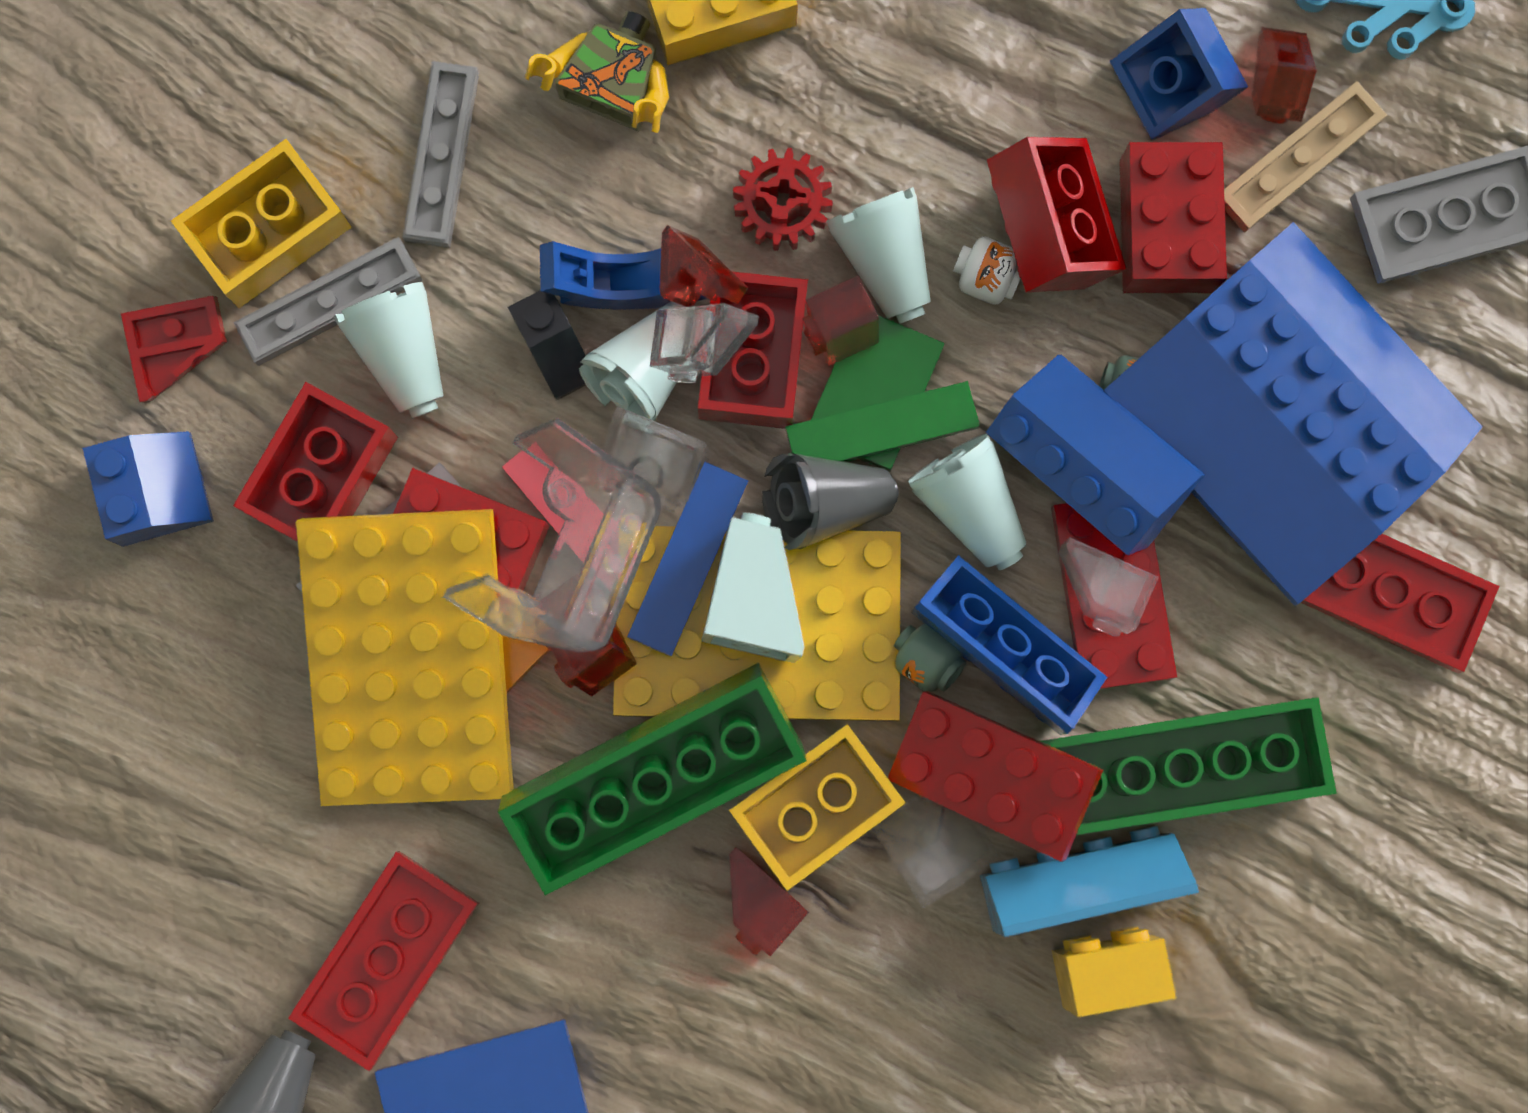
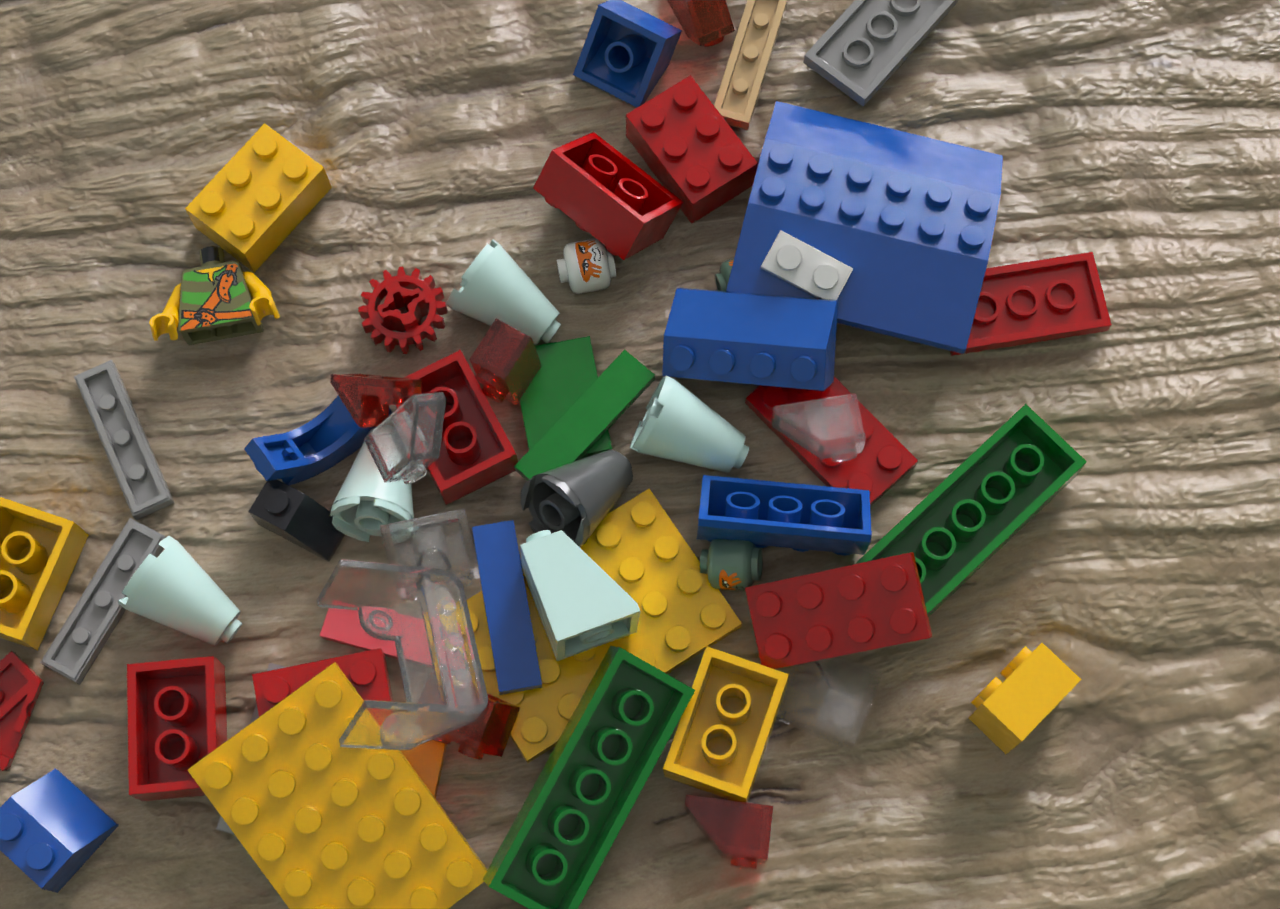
camera: 30 degrees left, 10 degrees down
(1087, 882) = (957, 647): dark azure slope -> none
(1197, 421) = (806, 267): none -> white plate

